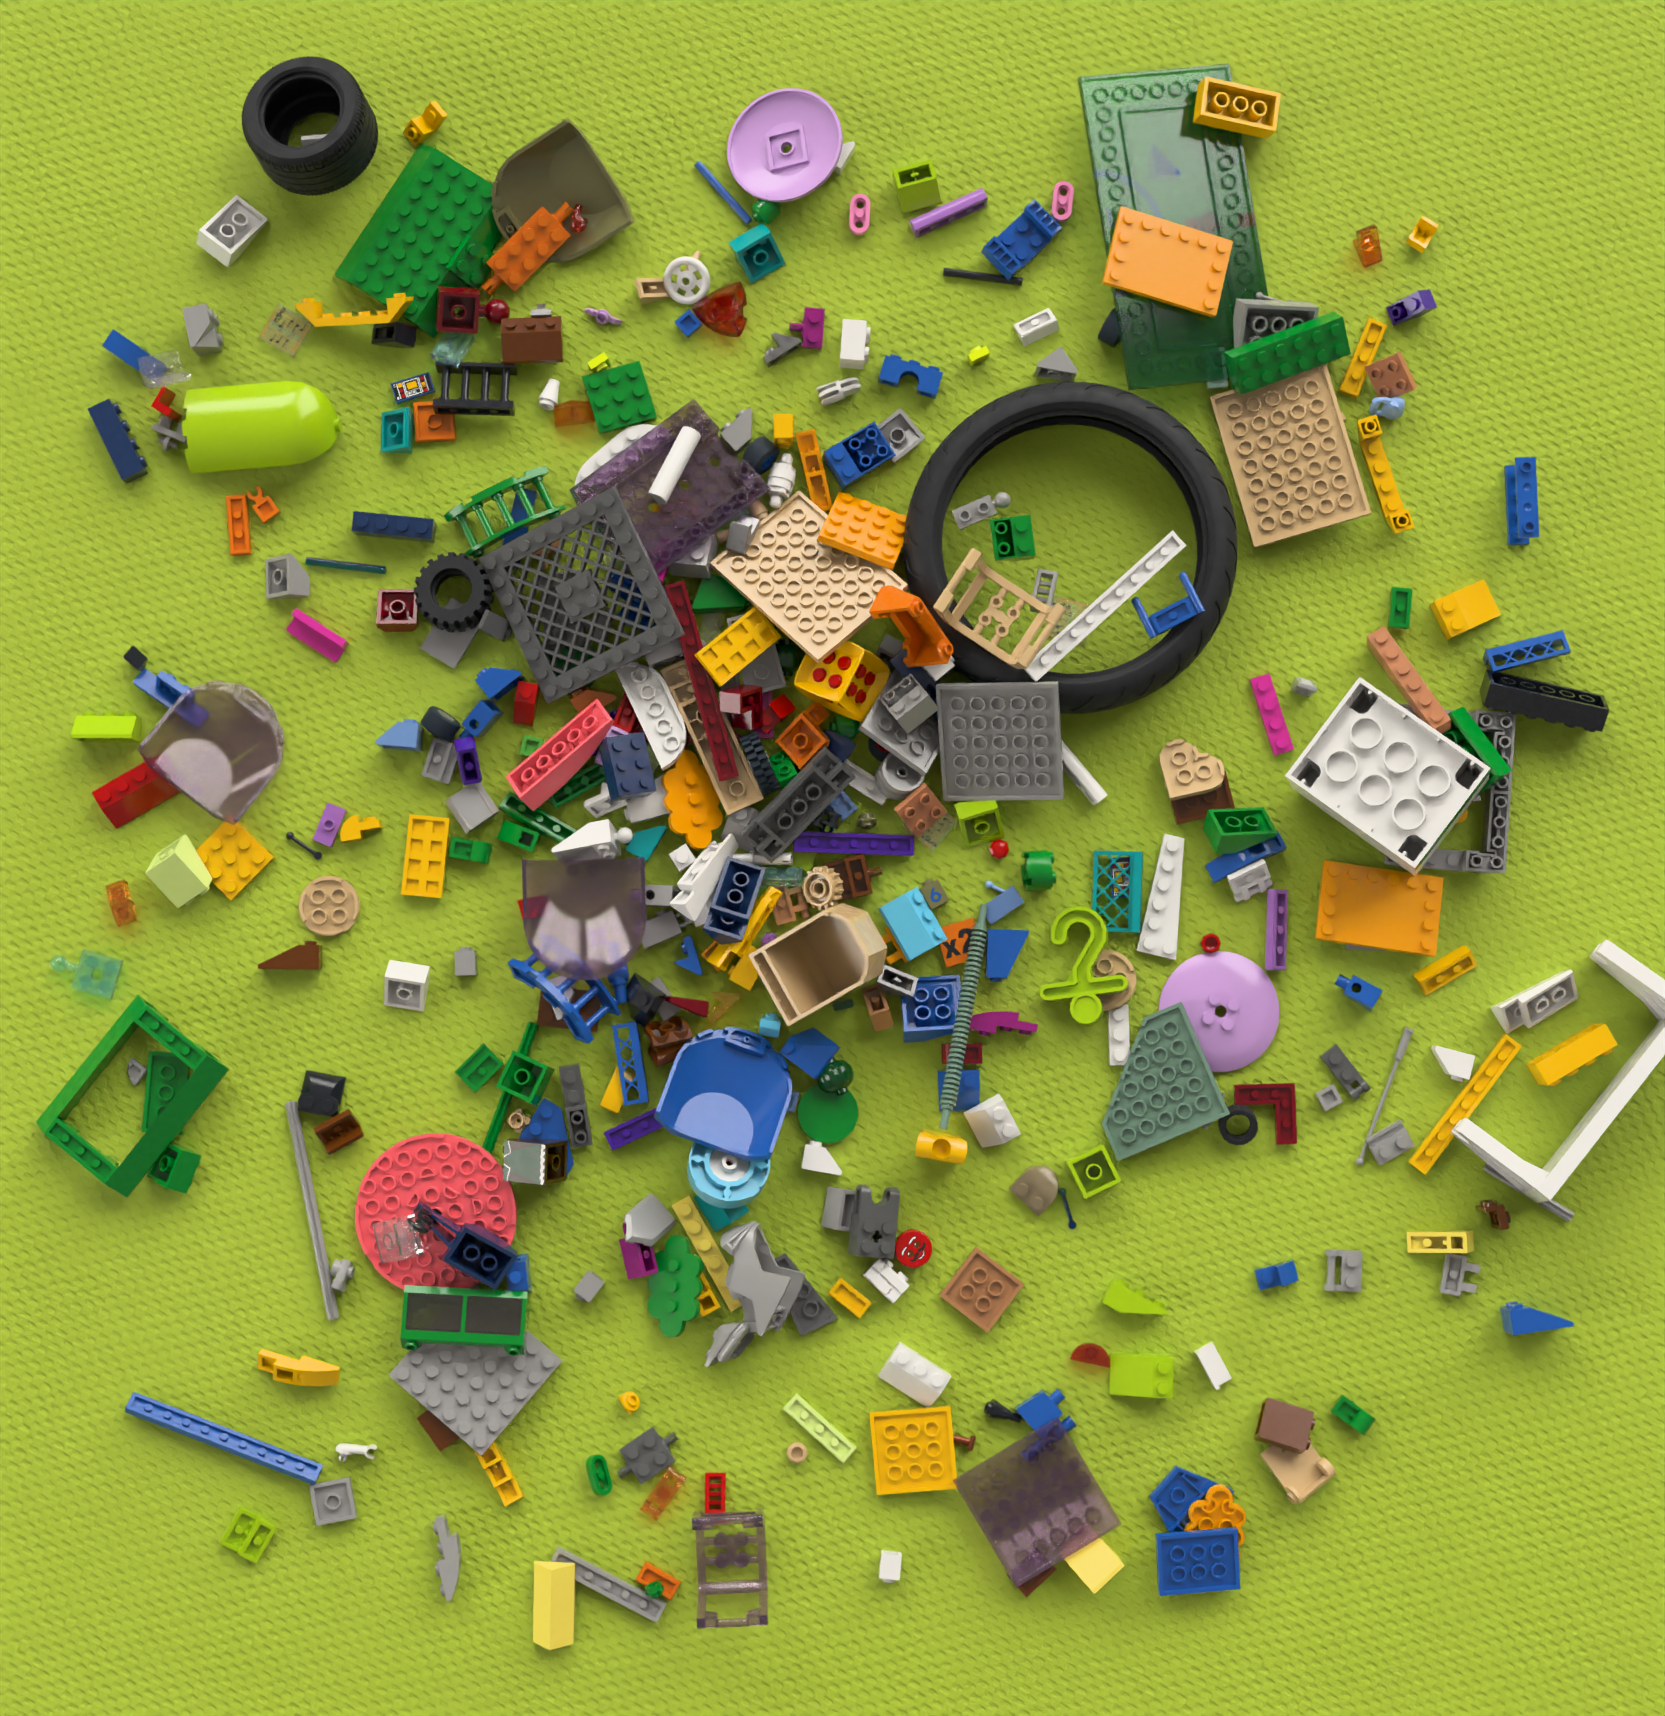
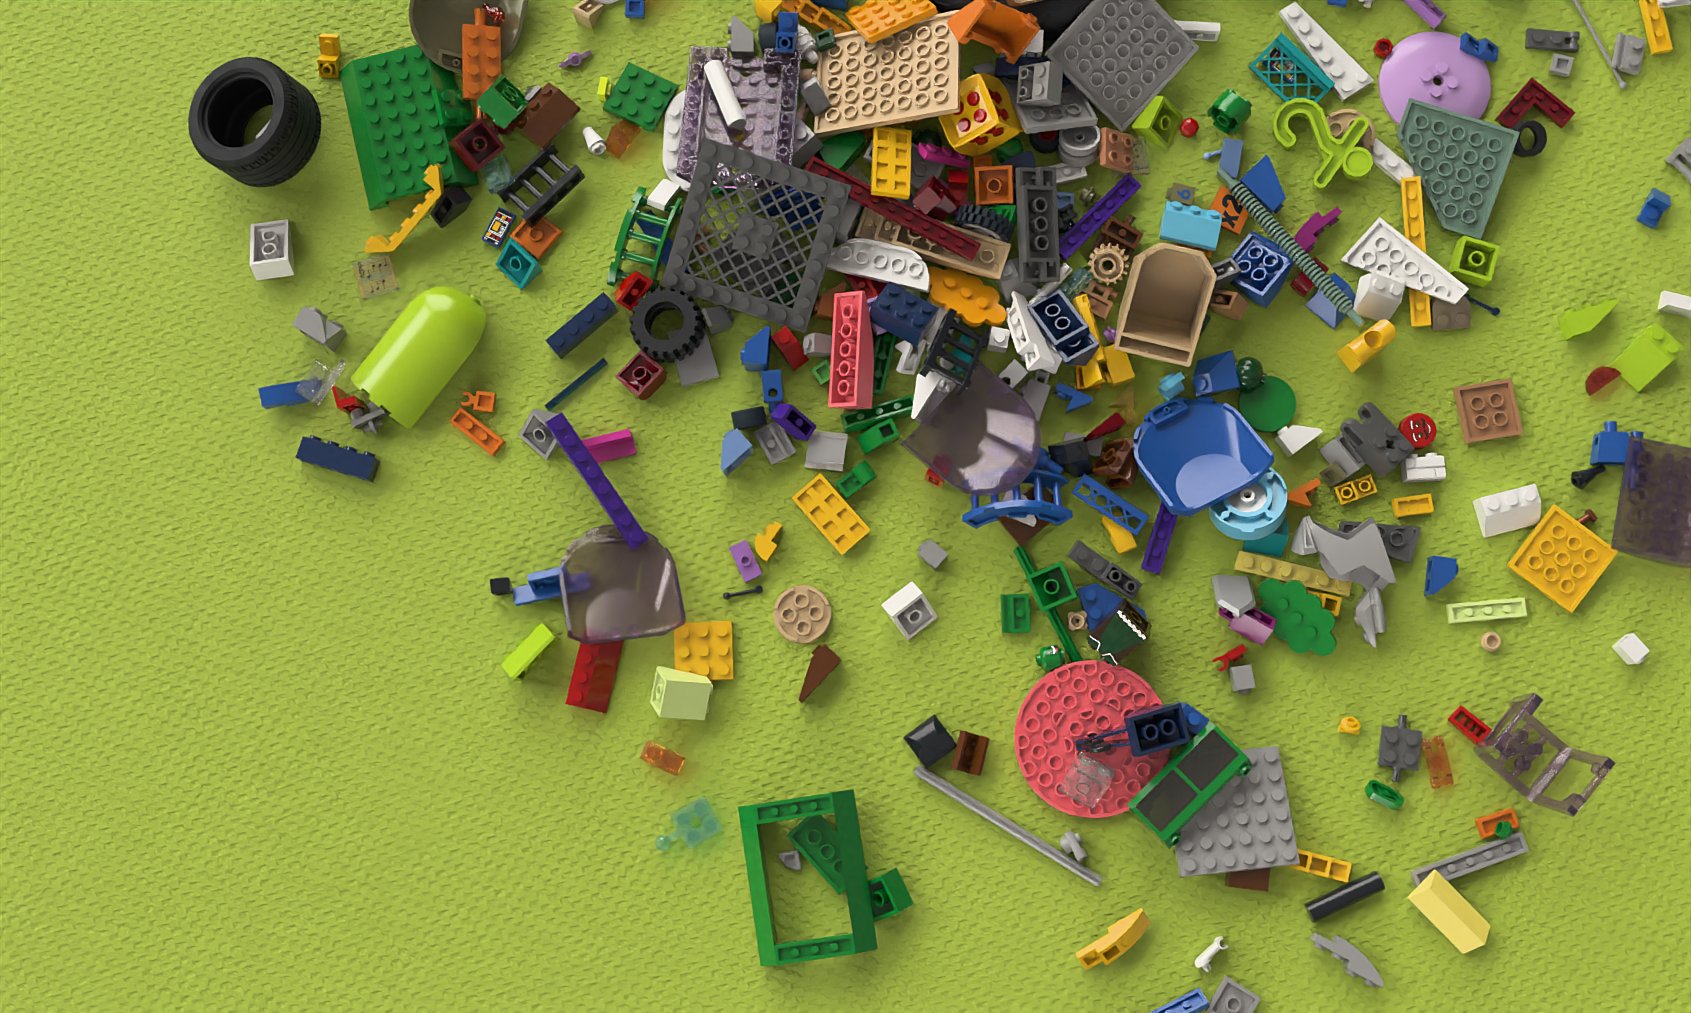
camera: 40 degrees left, 5 degrees down
(281, 655) = (596, 481): none -> dark purple plate
(454, 539) = (632, 289): none -> red slope
(469, 1126) = (1050, 657): none -> green head
(493, 1513) = (1344, 896): none -> black brick
(509, 297) = (502, 101): none -> green slope
(547, 722) = (817, 345): none -> light grey brick
(554, 490) = (663, 194): none -> white tile
(602, 1264) = (1234, 654): none -> red plate
(619, 820) = (937, 351): none -> black fence
(773, 465) = (788, 31): none -> blue slope
(773, 1200) = (1298, 497): none -> orange slope
(785, 676) = (943, 155): none -> dark pink plate
(799, 498) = (825, 40): none -> dark green tile
(814, 1366) = (1439, 573): none -> blue slope
(817, 1213) = (1333, 474): none -> olive plate
(822, 1242) = (1355, 489): none -> yellow slope
(1037, 1110) = (1393, 256): none -> white wing
(1059, 1118) = (1414, 232): none -> yellow plate
(1282, 1022) = (1480, 49): none -> blue slope

